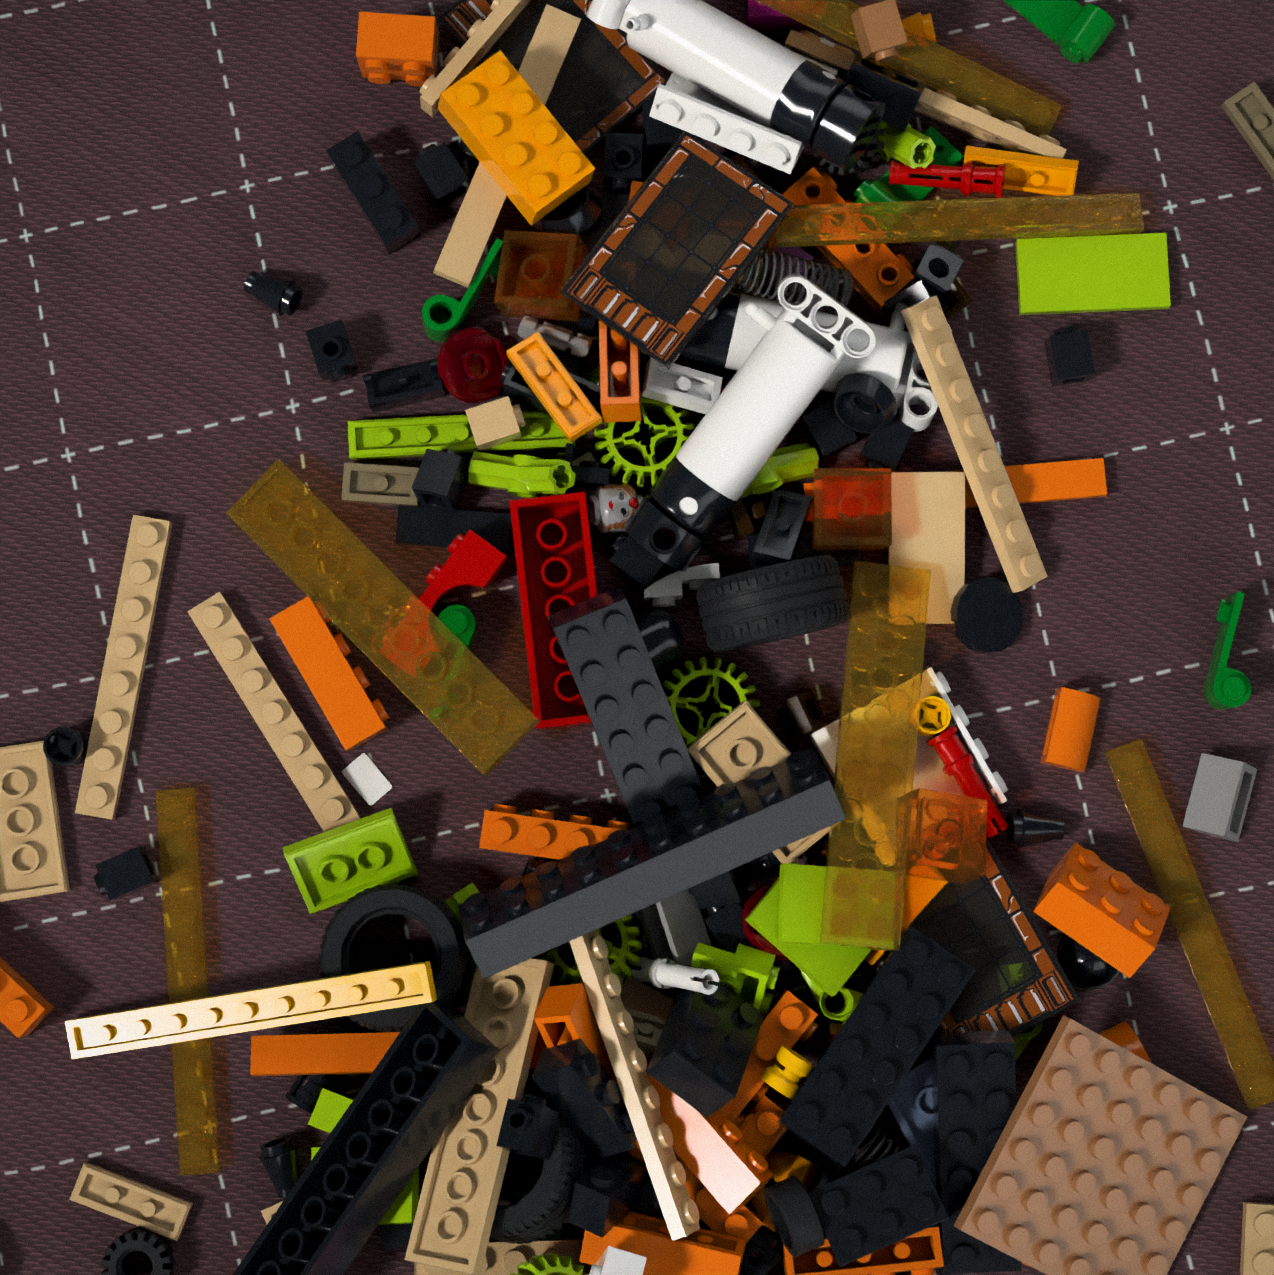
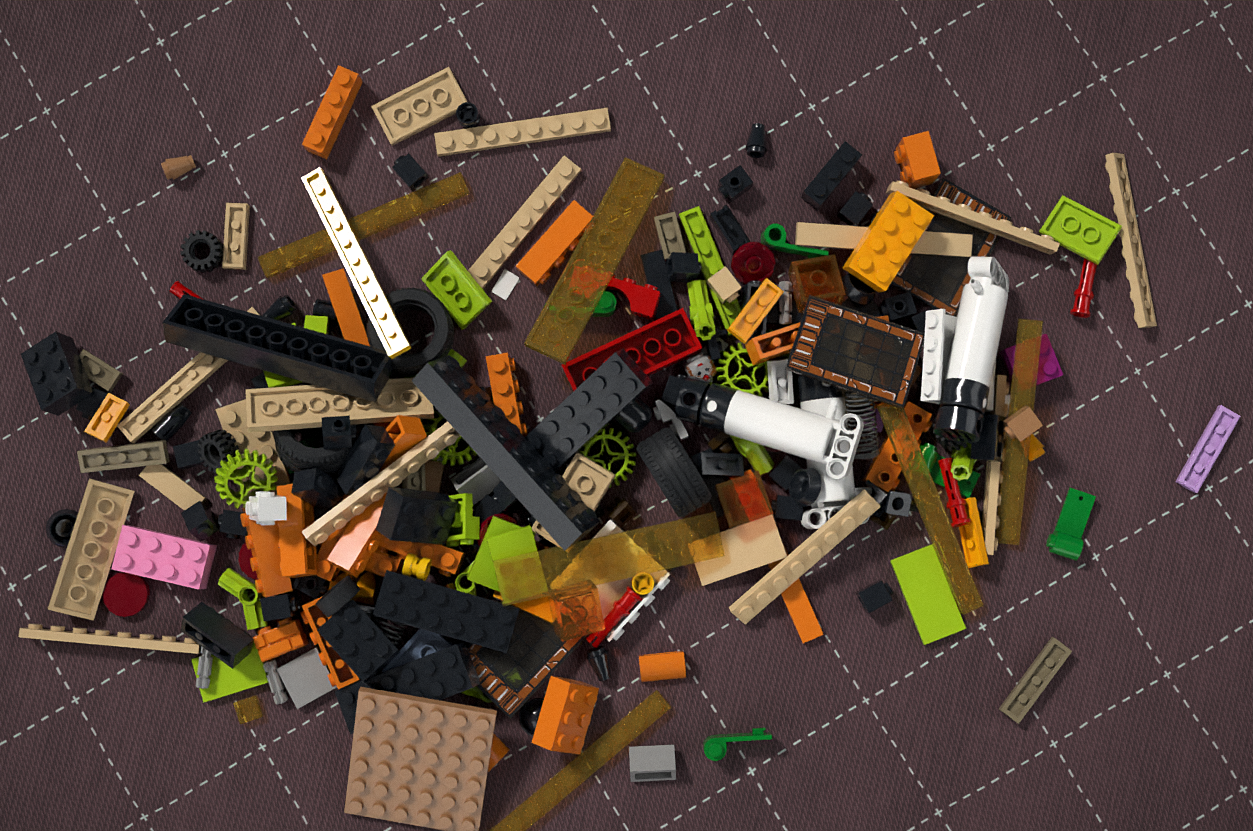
camera: 80 degrees right, 0 degrees up
(665, 974) = (449, 482): white pin -> none
(987, 615) = (710, 597): black tile -> none

